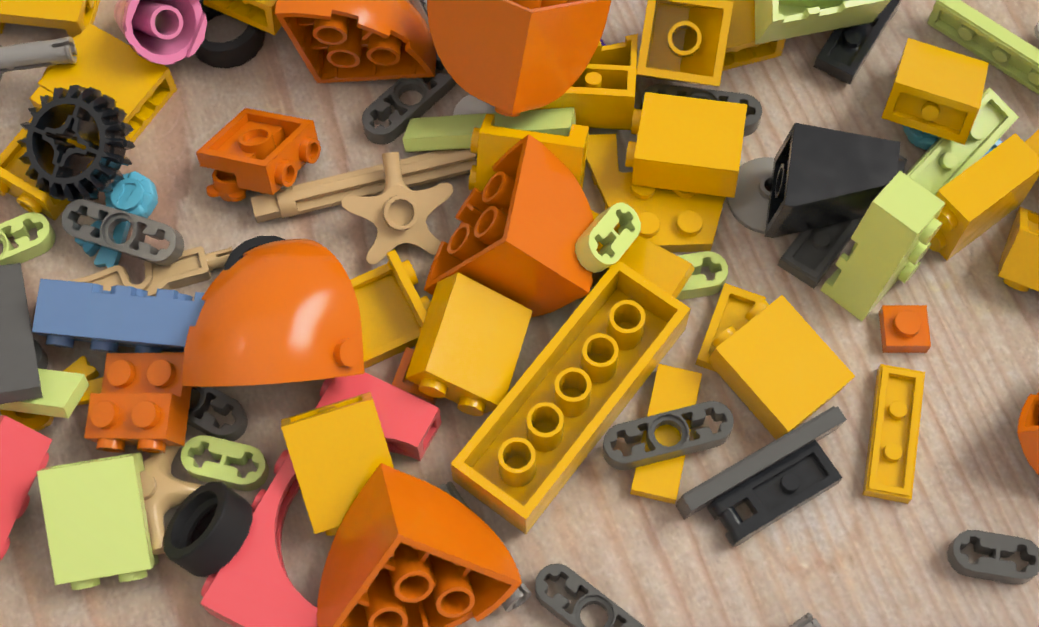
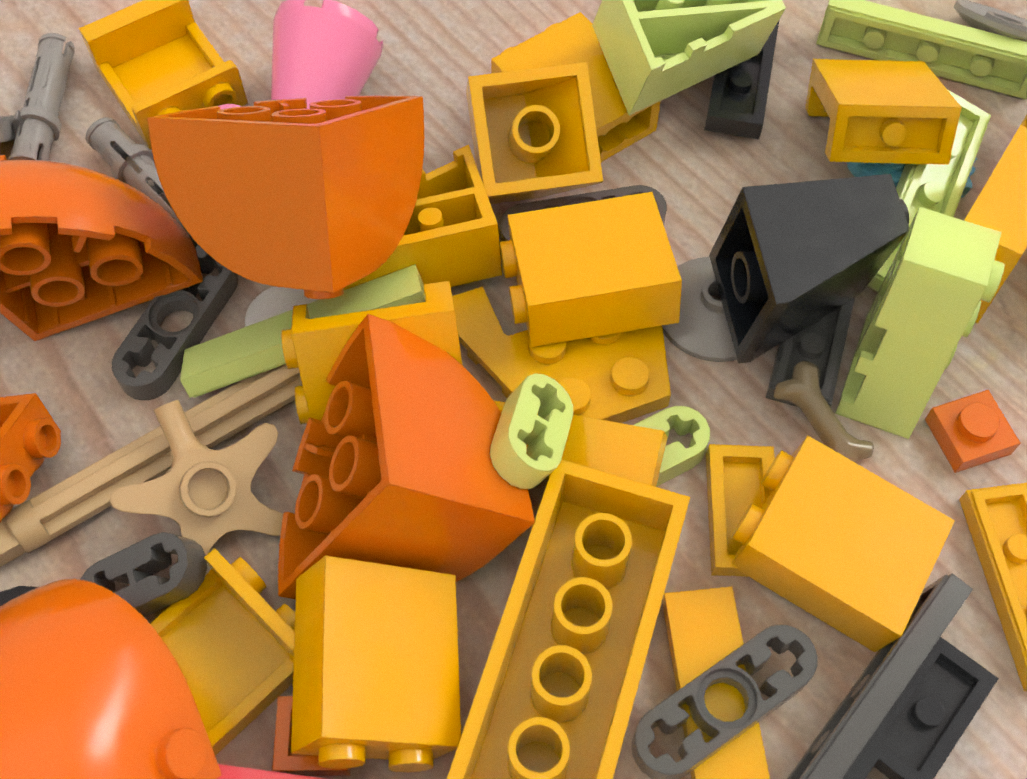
camera: 20 degrees left, 5 degrees down
(349, 244) = (143, 559): none -> dark grey beam
(799, 269) = (806, 394): none -> dark tan piece

